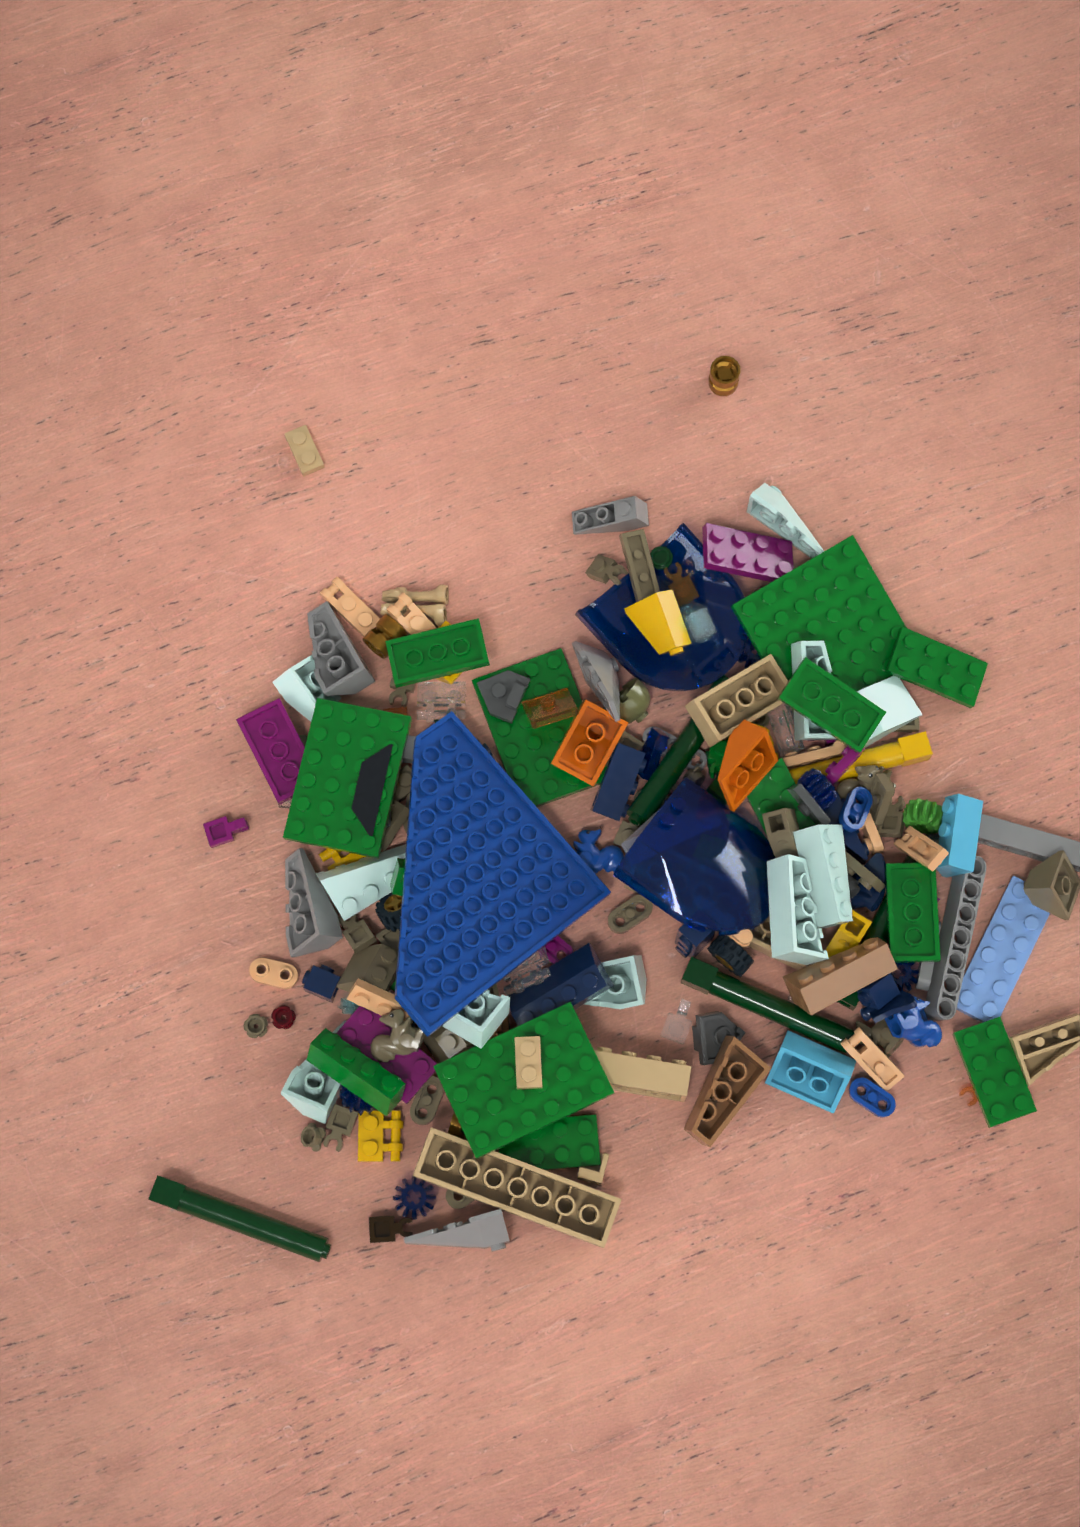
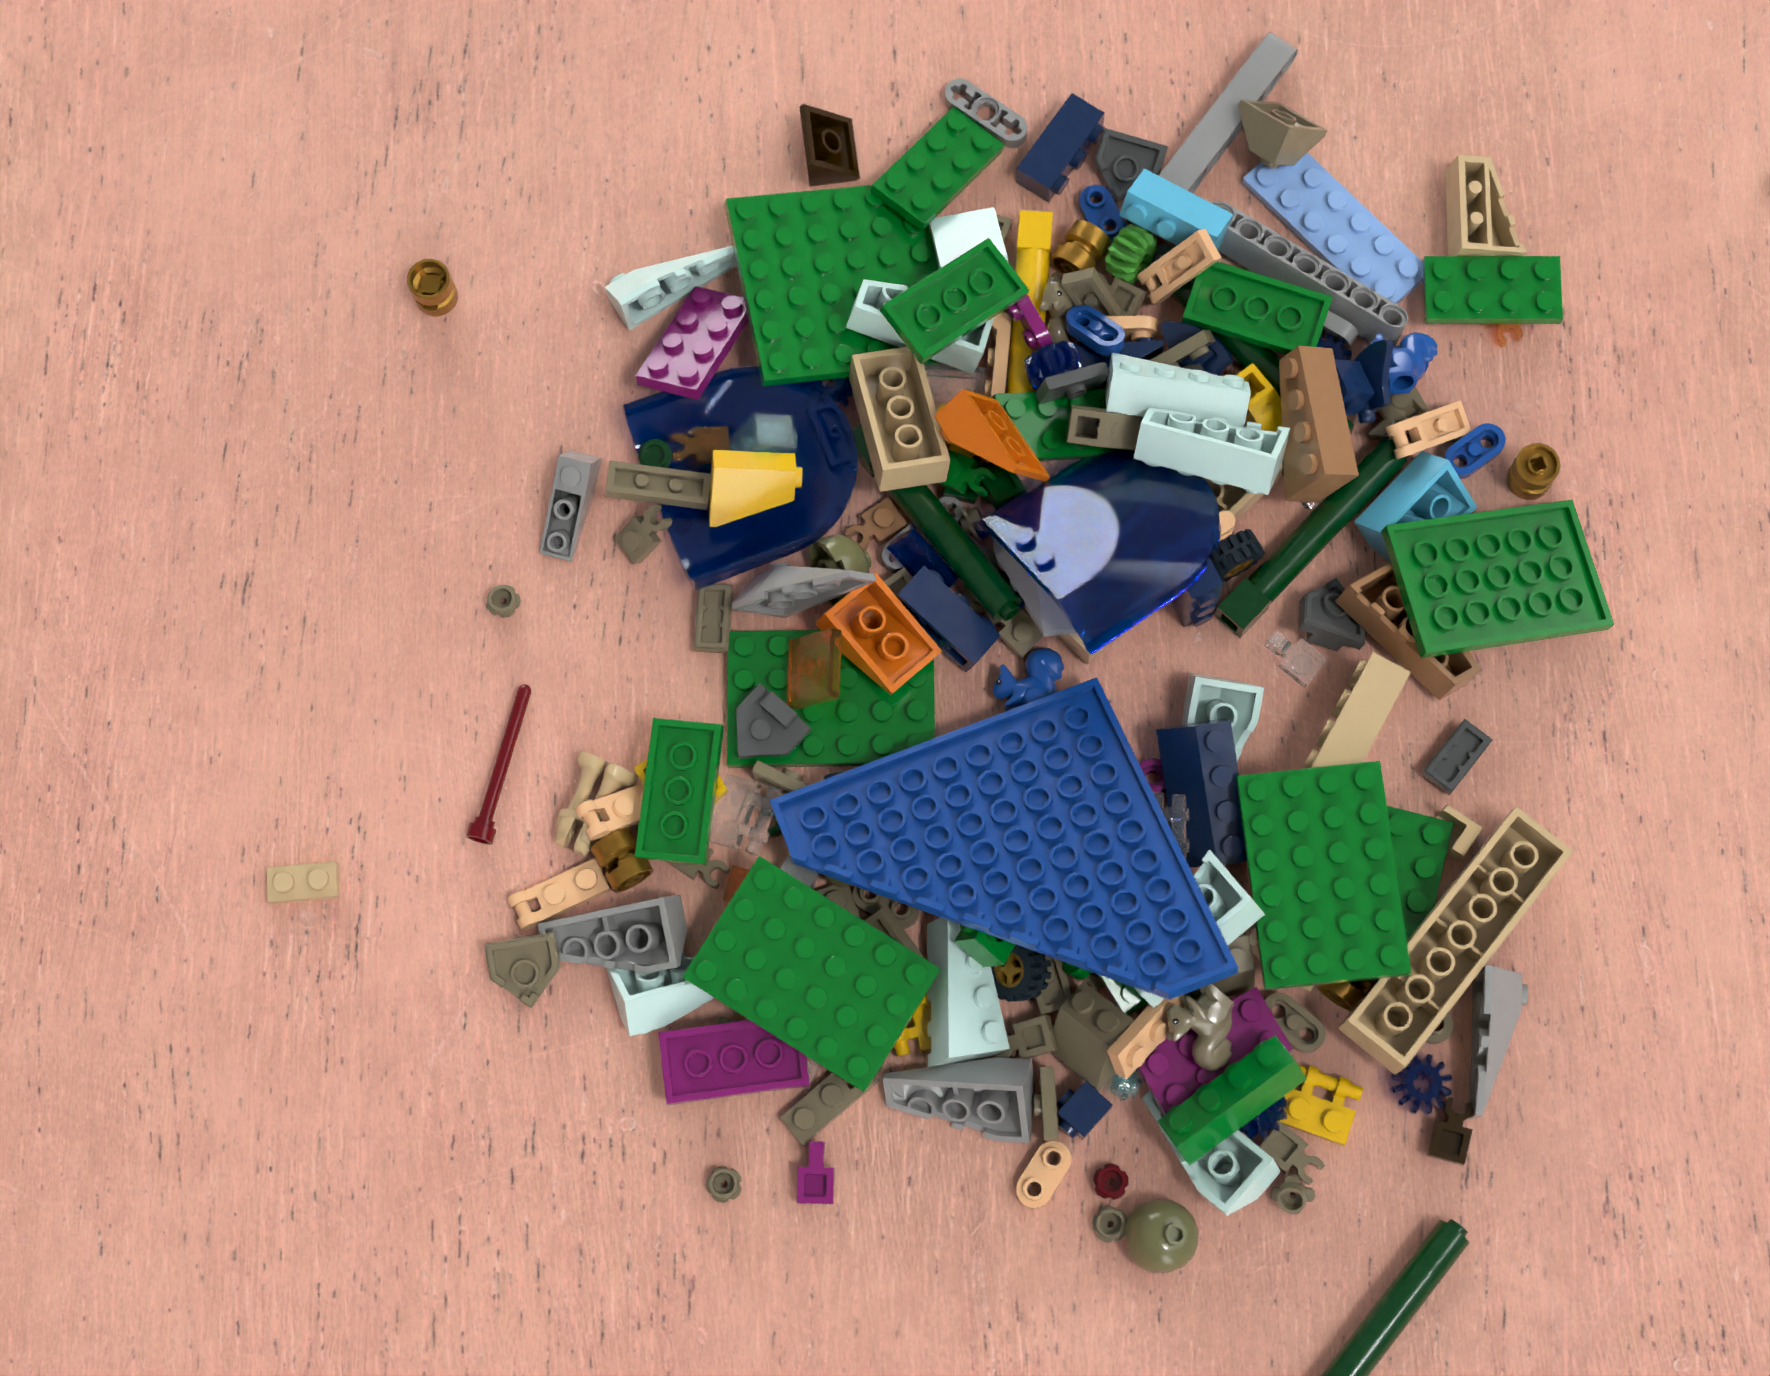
camera: 65 degrees left, 0 degrees up
(201, 782) = (718, 1176): none -> dark tan plate
(257, 1059) = (1161, 1236): none -> olive cylinder
(268, 817) = (821, 1107): none -> dark tan plate
(297, 602) = (524, 964): none -> dark tan plate
(317, 958) = (1046, 1105): none -> dark tan plate
(370, 788) = (842, 944): black sticker -> none
(377, 544) = (482, 828): none -> dark red piece
(473, 720) = (785, 780): none -> dark tan plate
(528, 1062) = (1306, 857): tan plate -> none
(530, 495) = (503, 592): none -> dark tan plate
(563, 635) = (713, 618): none -> dark tan plate
(629, 914) = (1128, 669): dark tan plate -> none
(648, 1153) = (1457, 757): none -> dark grey plate
(672, 719) = (880, 522): none -> medium nougat plate
(780, 1138) = (1496, 578): none -> green plate
(870, 1141) = (1533, 471): none -> pearl gold wheel
(914, 783) = (1083, 247): none -> pearl gold wheel
(924, 590) = (828, 146): none -> dark brown slope
(948, 787) = (1101, 213): none -> blue plate
(985, 744) = (1061, 148): none -> dark blue brick
(994, 705) = (1010, 118): none -> light grey beam
(995, 791) = (1124, 158): none -> dark grey plate

